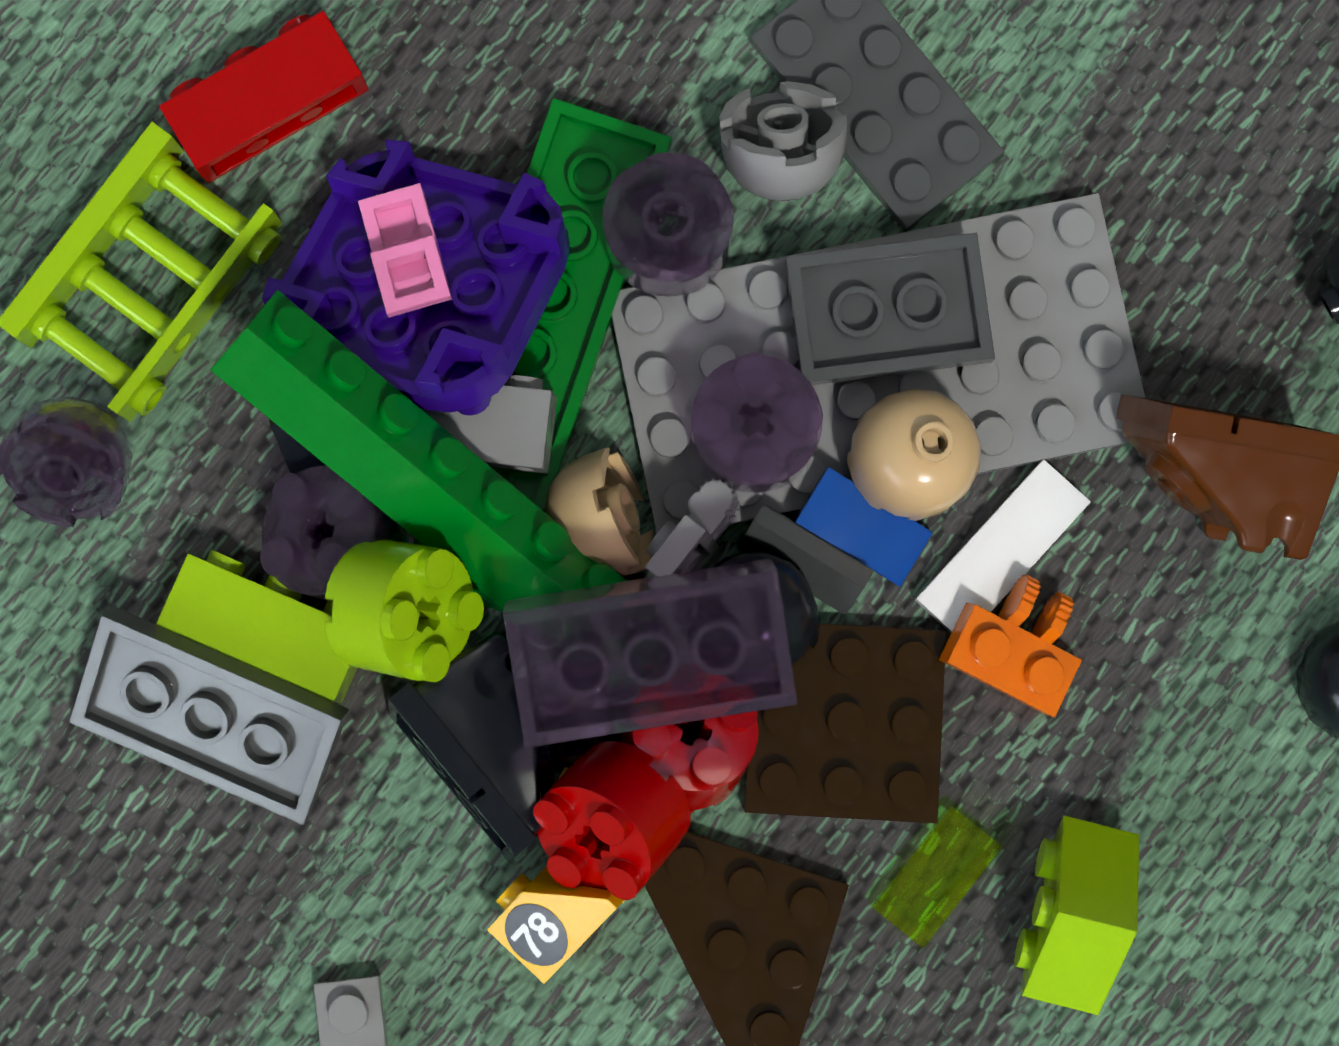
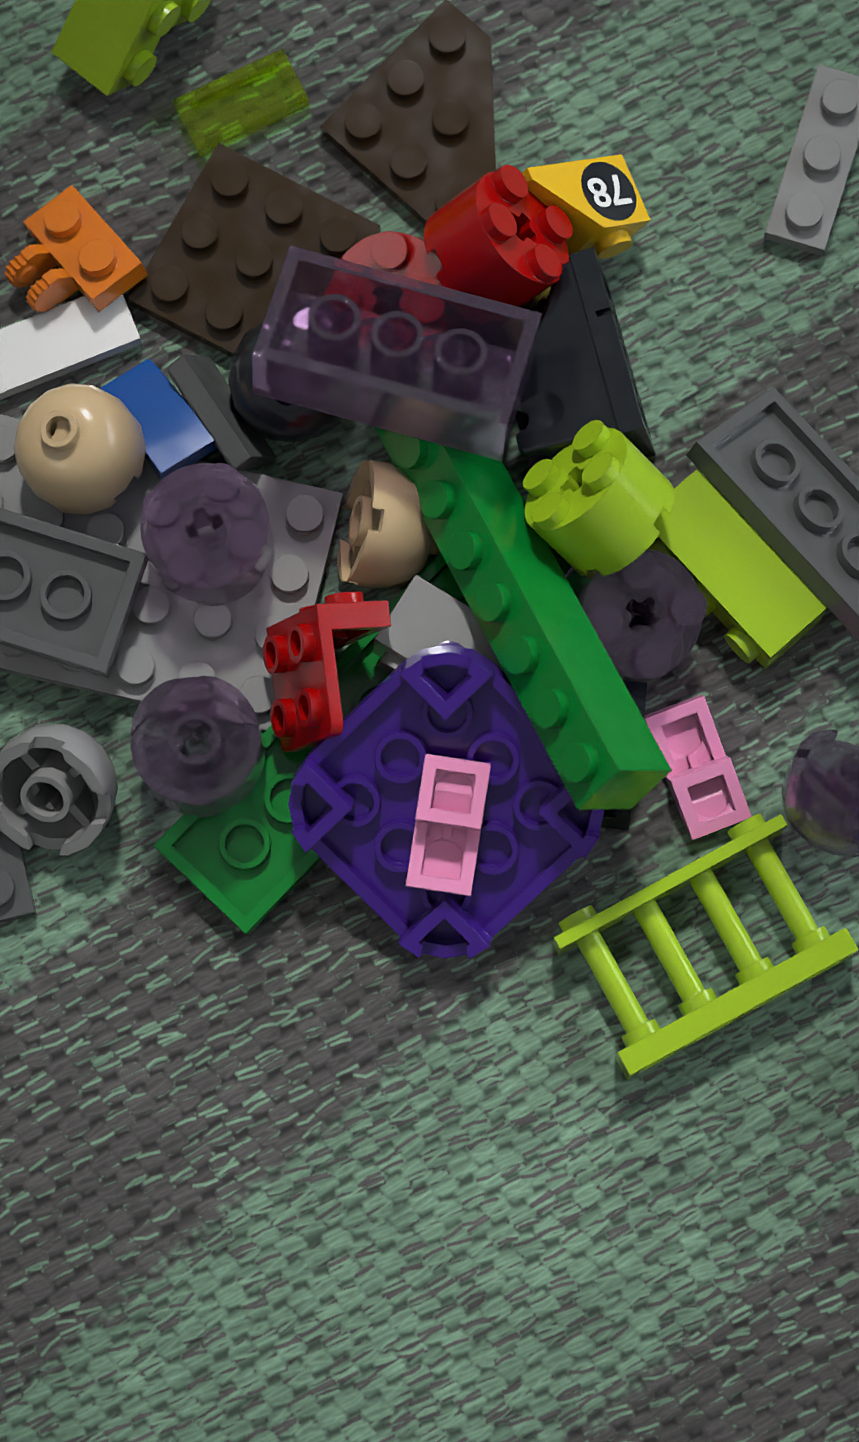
camera: 150 degrees left, 5 degrees down
(221, 436) = (701, 773): none -> bright pink slope
(263, 95) = (515, 1064): red brick -> none
(615, 350) = (304, 665): none -> red bracket
(694, 539) = (320, 459): light grey hinge -> none

